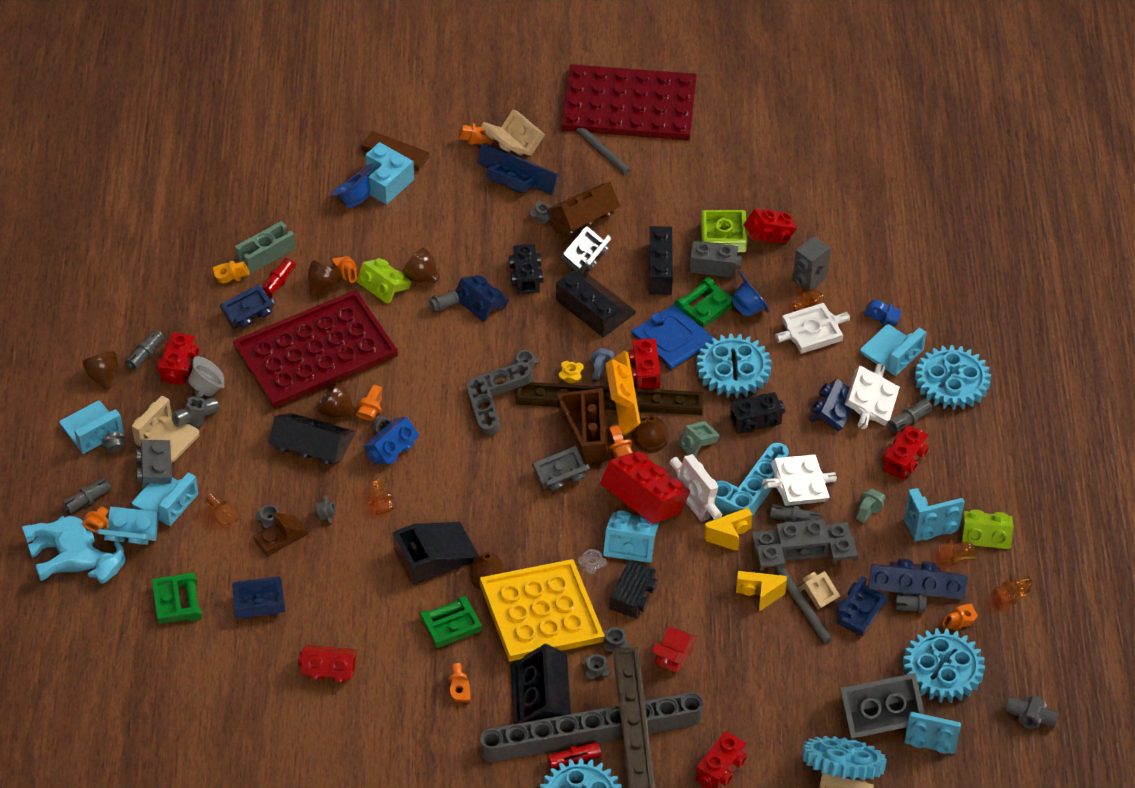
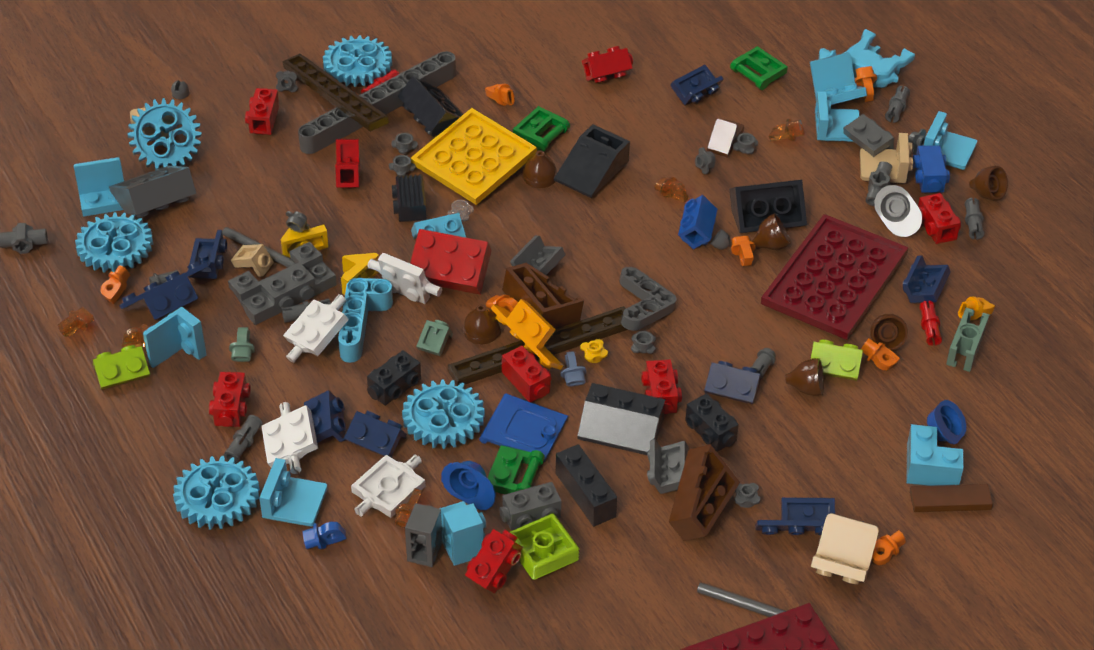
camera: 150 degrees right, 5 degrees down
(137, 399) = (930, 169): none -> blue brick
(542, 313) = (662, 382): none -> red brick
(765, 577) = (297, 221): none -> dark grey plate
(779, 260) = (462, 531): none -> medium azure brick
(796, 374) = (373, 434): none -> dark blue bracket

